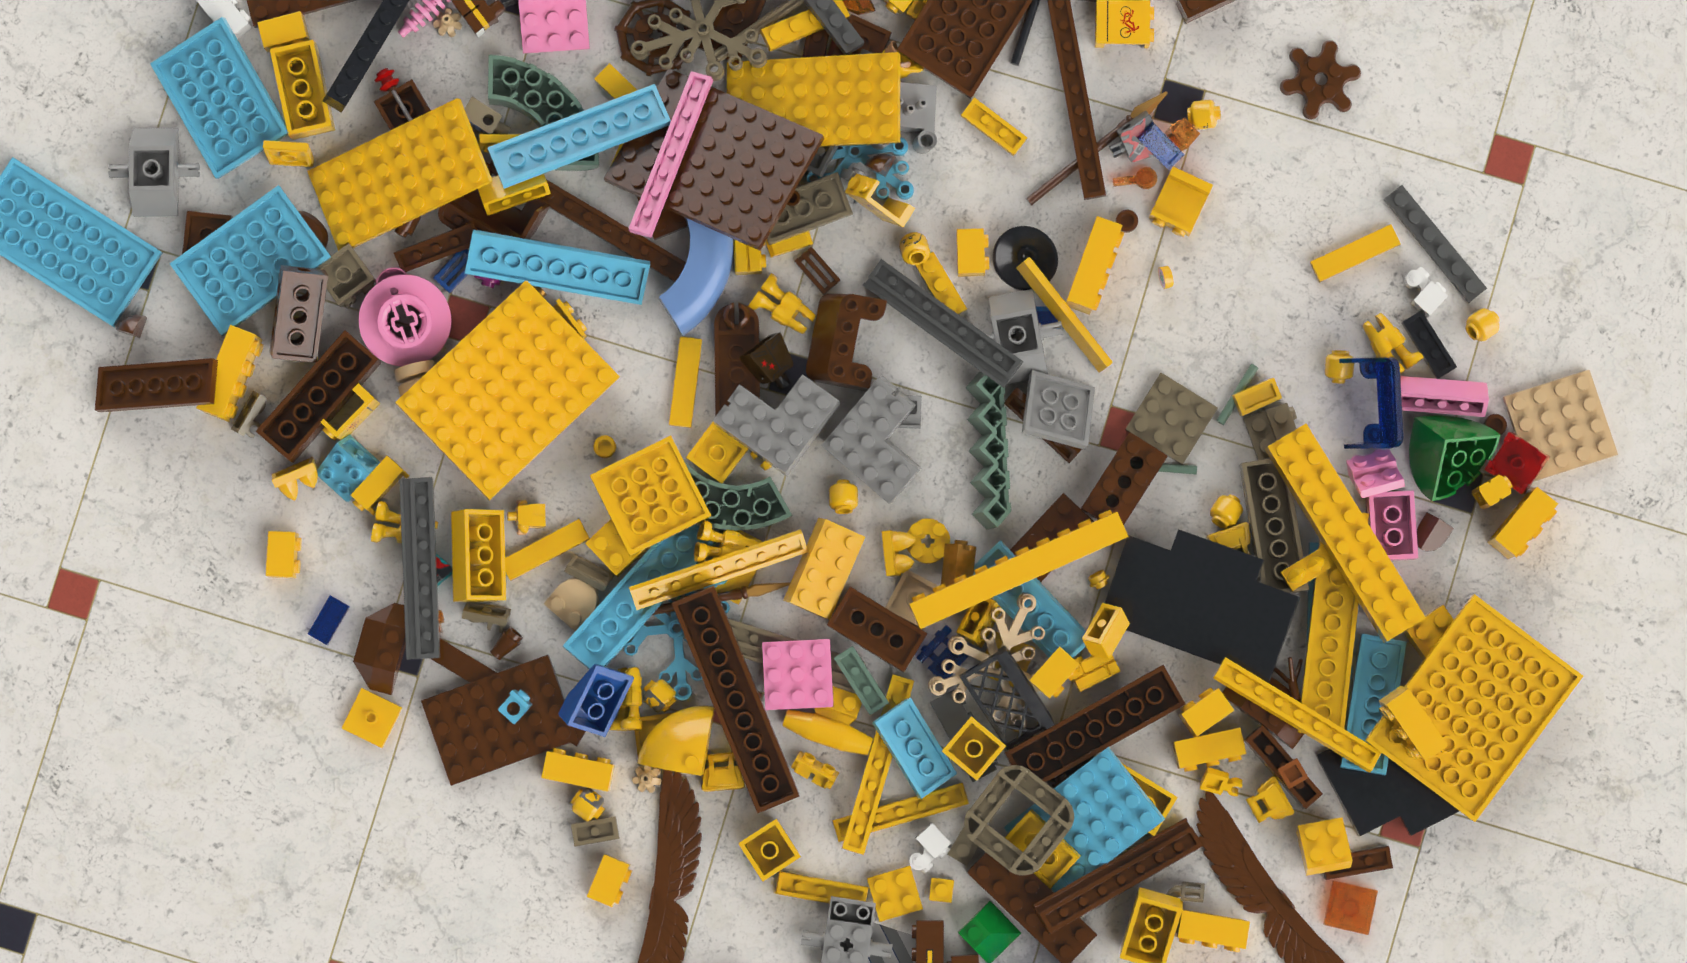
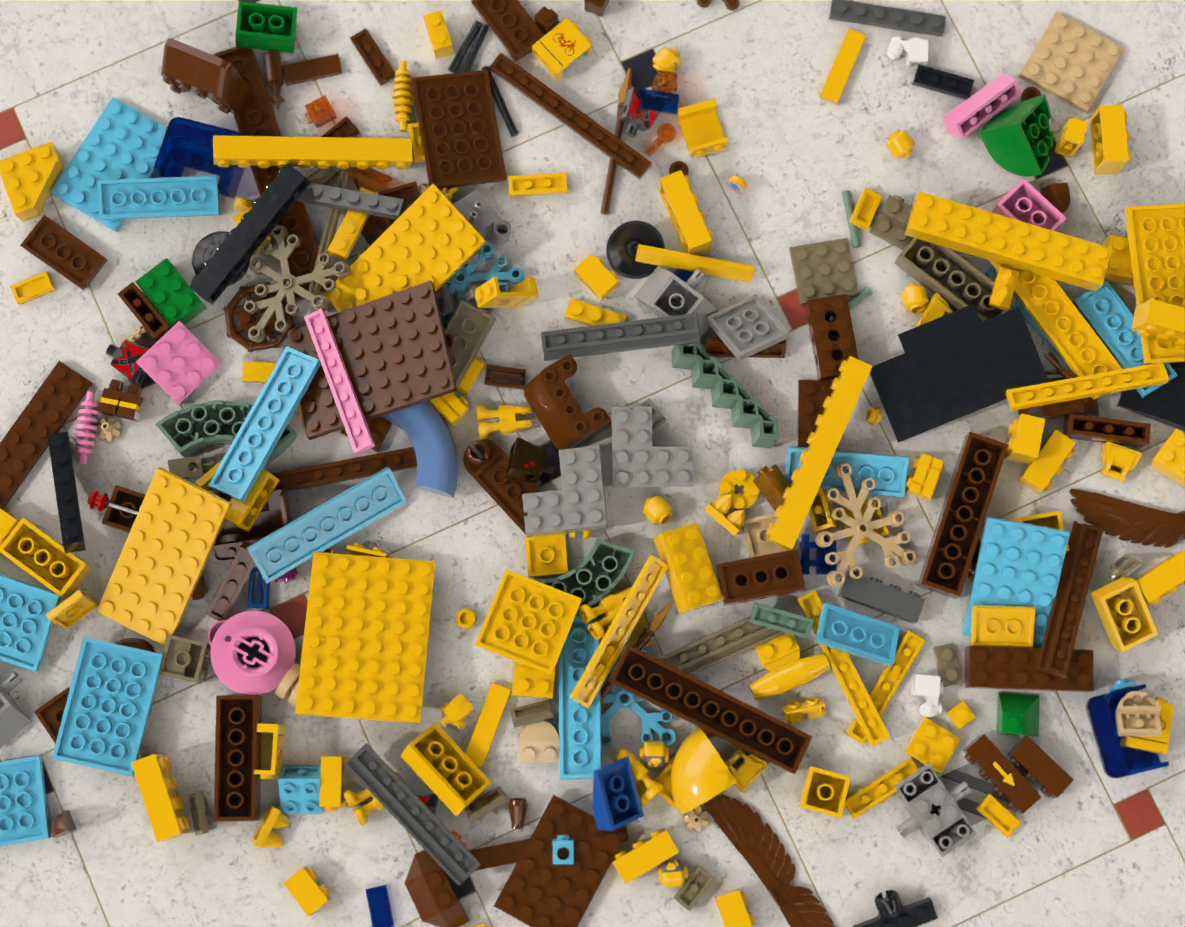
camera: 45 degrees left, 5 degrees down
(156, 385) = (114, 851): reddish brown plate -> none
(309, 324) = (188, 713): brick -> none
(685, 382) = (482, 527): yellow tile -> none
(797, 674) = (735, 655): bright pink plate -> none
(880, 163) = (484, 270): reddish brown brick -> none
(914, 248) = (557, 306): yellow head -> none
(973, 748) = (899, 598): yellow brick -> none
(992, 799) = (1004, 619): dark tan plate -> none
(1020, 684) = (896, 529): black fence -> none
(1055, 673) = (905, 501): yellow brick -> none
(1105, 630) = (912, 442): yellow brick -> none
(1217, 781) = (1073, 477): yellow plate -> none
(1292, 773) = (1120, 427): dark orange plate -> none
(1374, 473) = (987, 190): bright pink plate -> none
(1389, 339) = (915, 103): yellow piece -> none
(1389, 430) = (958, 133): clear blue windscreen -> none
(1482, 324) = (965, 40): yellow head -> none
(1518, 462) = (1069, 103): red panel -> none

